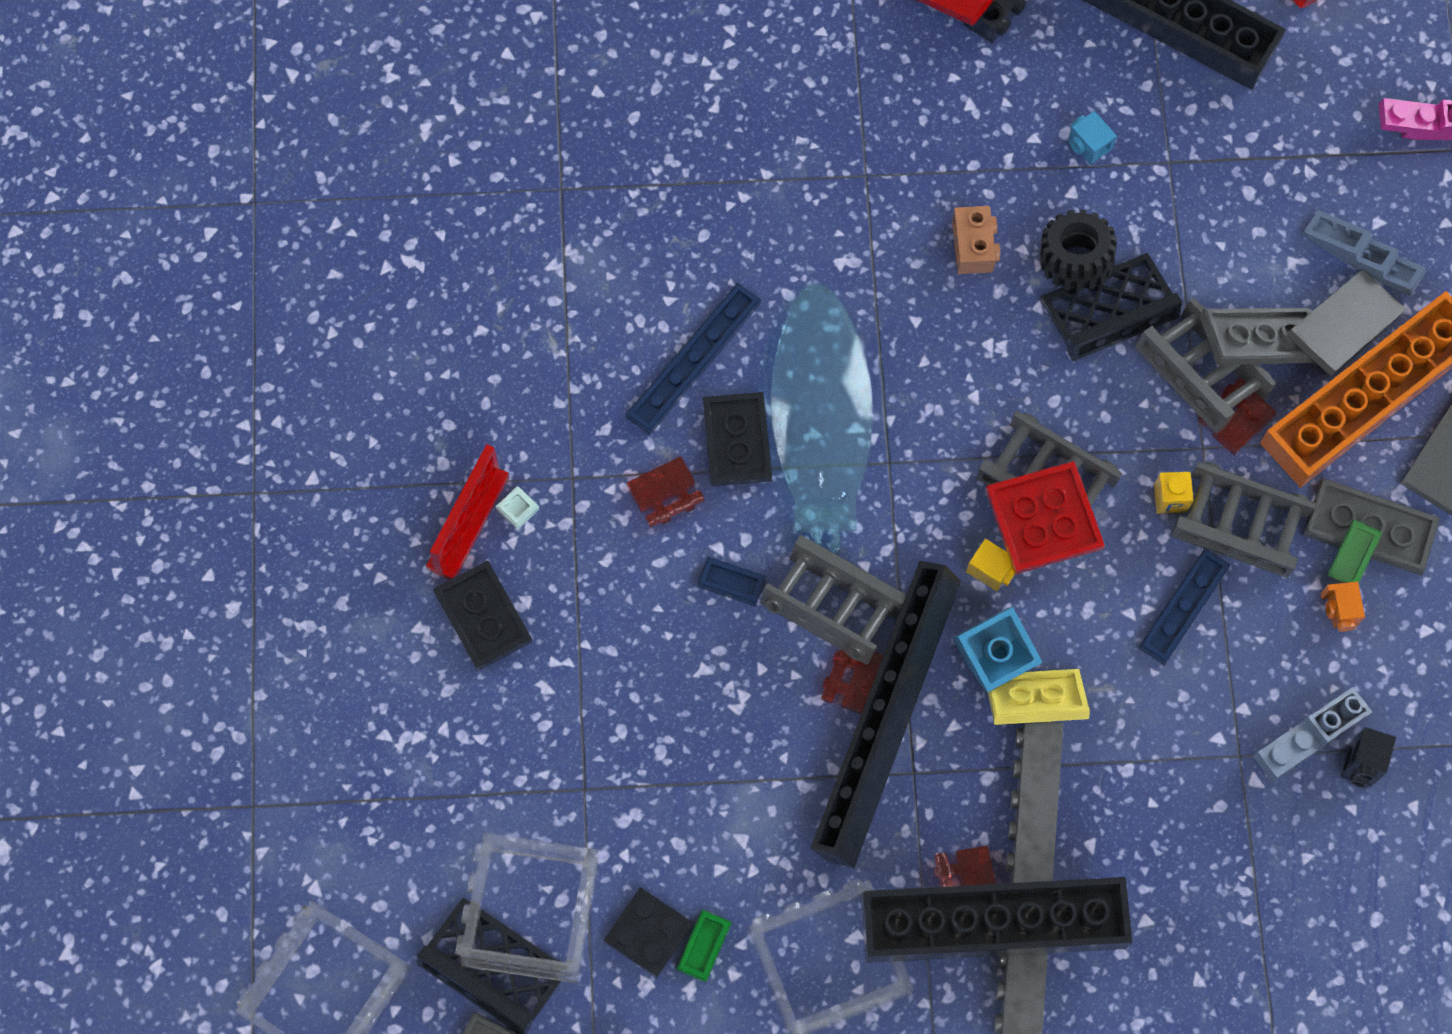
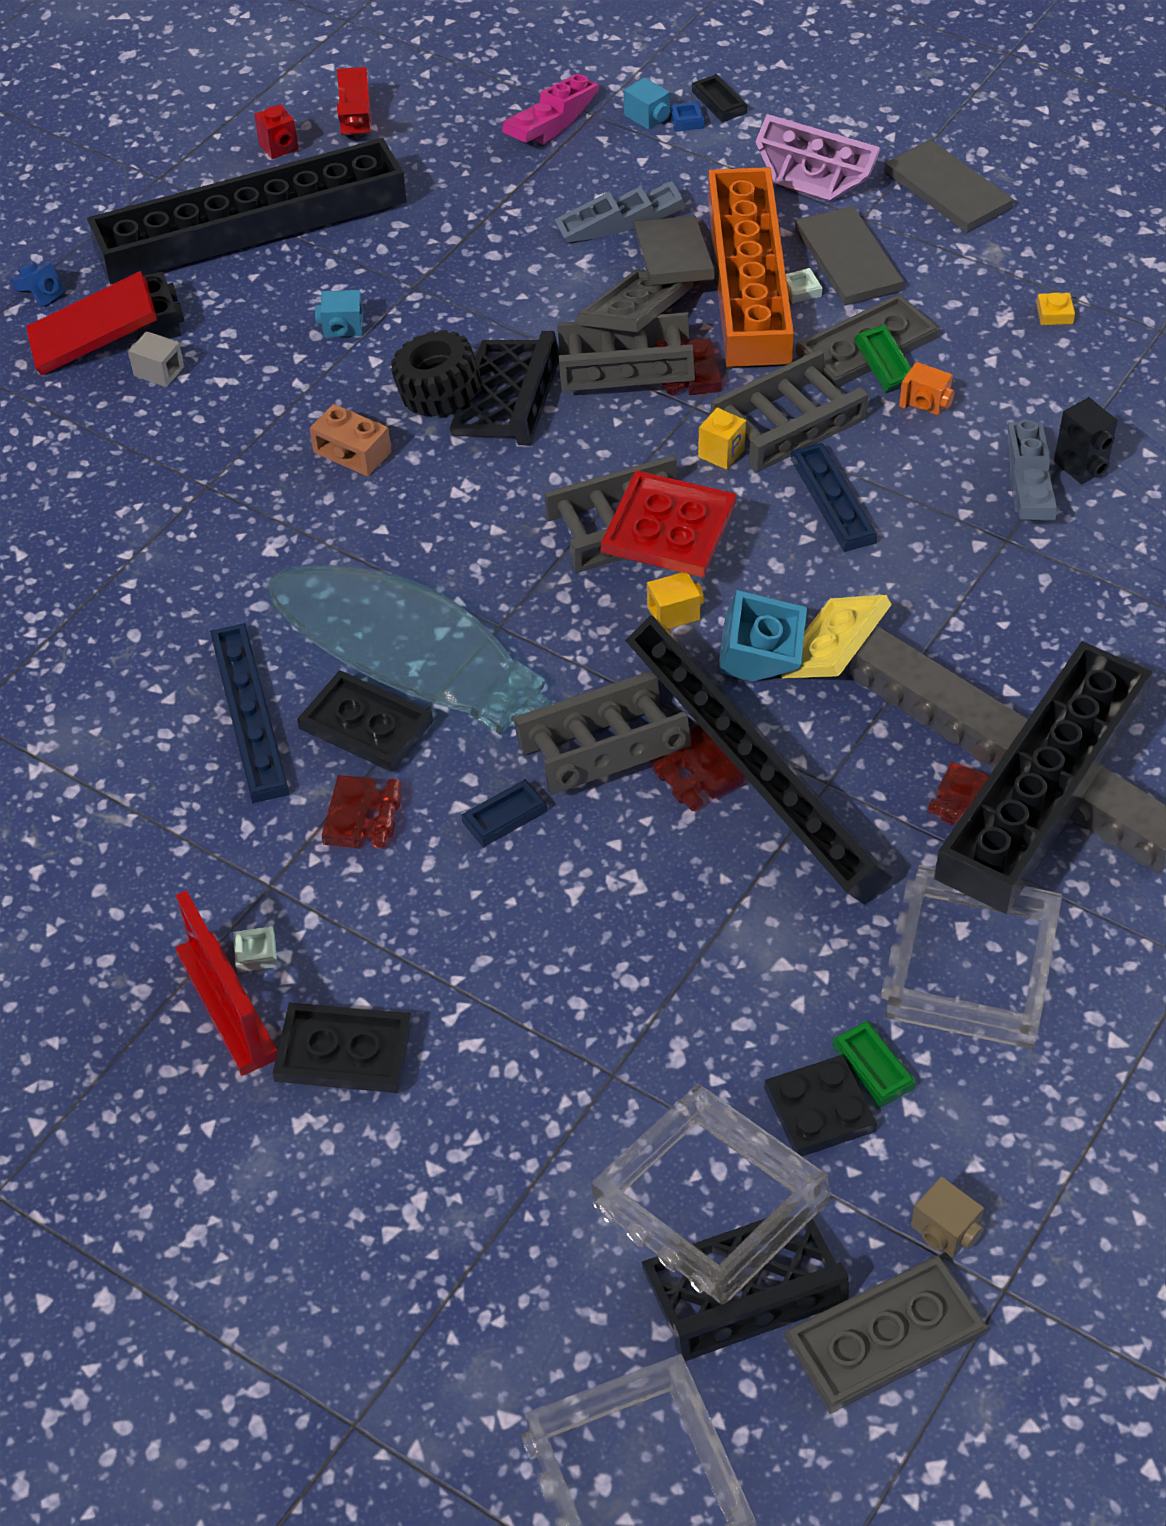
camera: 50 degrees left, 20 degrees down
(947, 49) = (156, 359): none -> light grey brick
(1393, 438) = (803, 286): none -> light aqua tile

